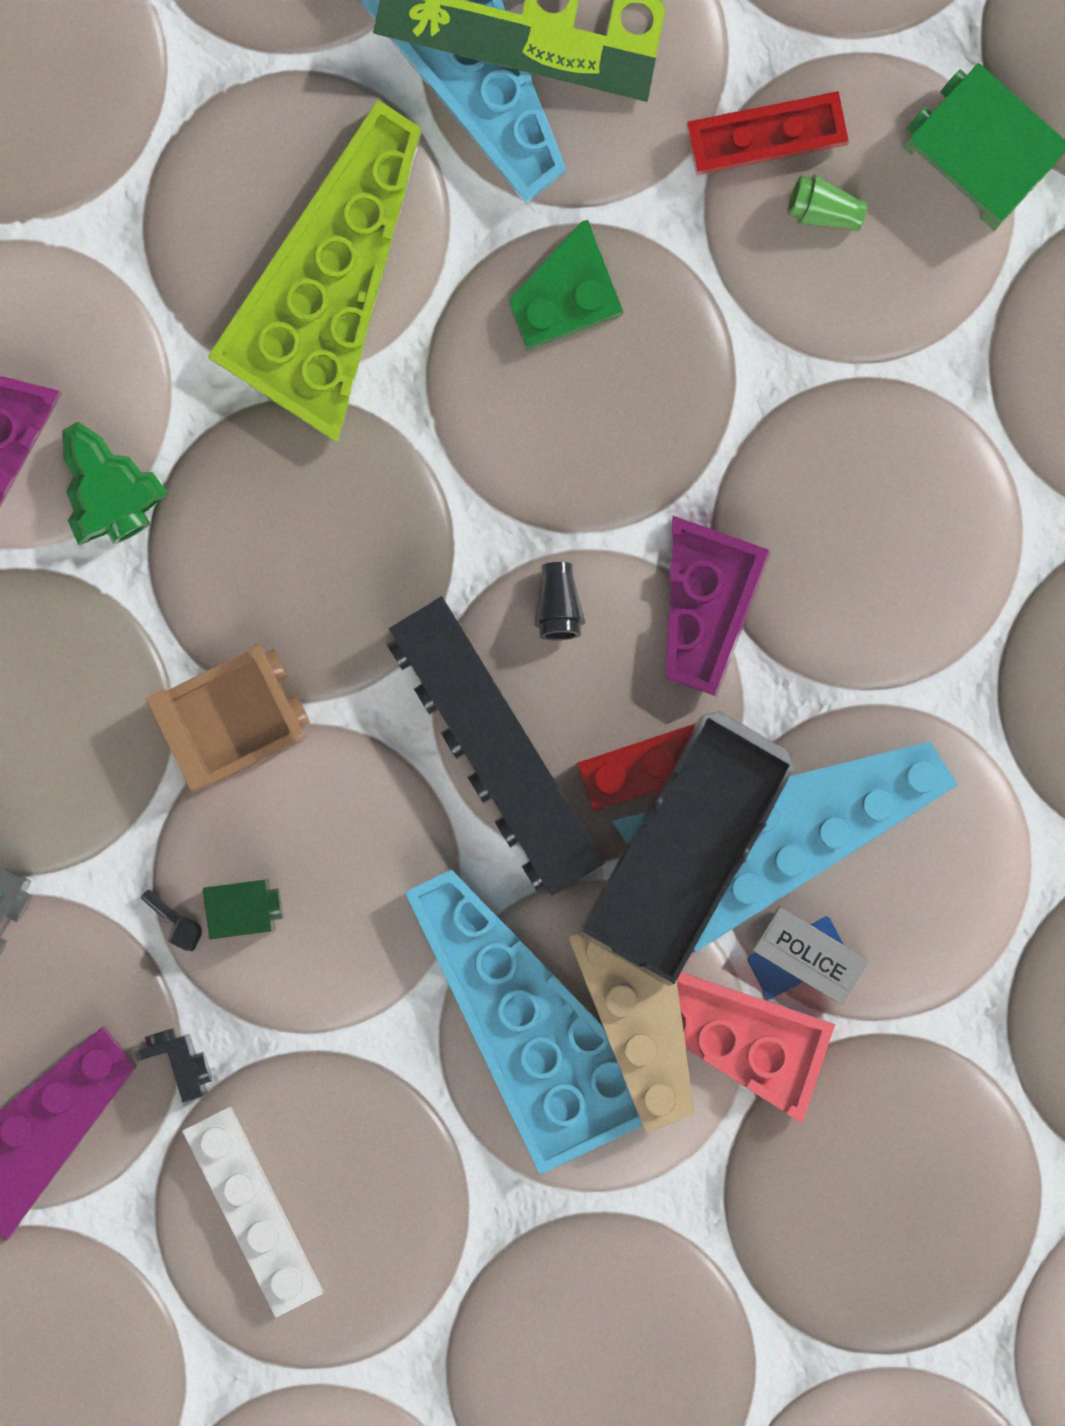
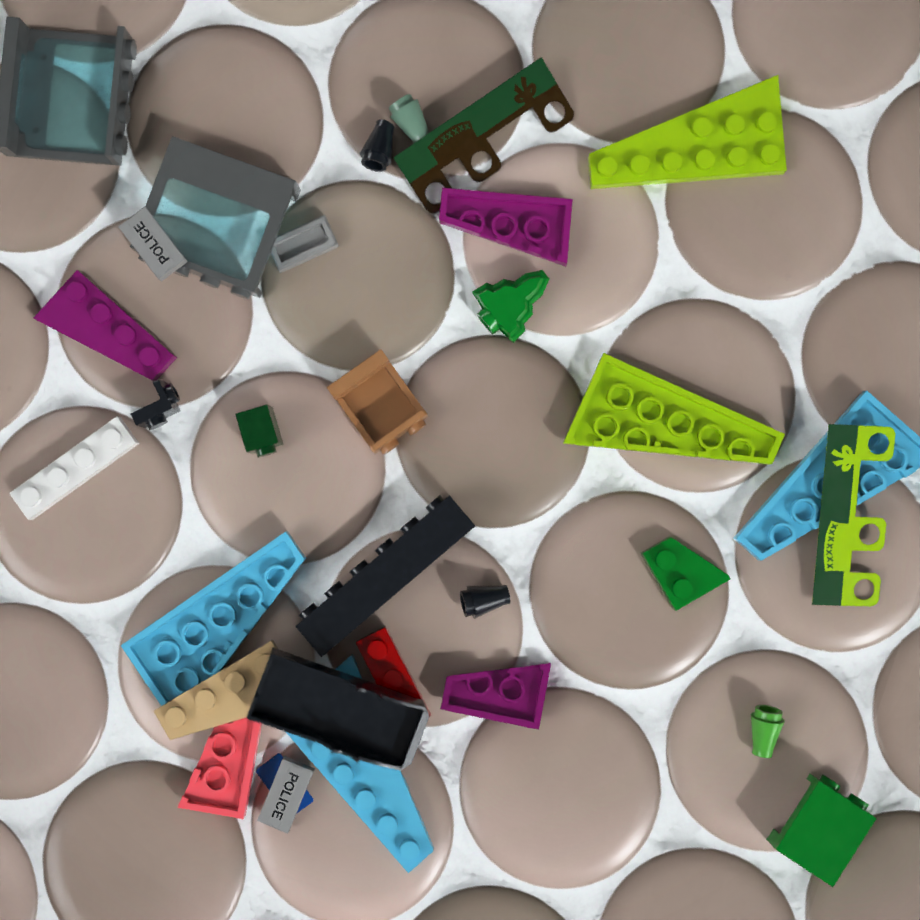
camera: 80 degrees right, 0 degrees up
(185, 931) = (242, 398): black hand -> none
(767, 133) = (805, 685): red plate -> none

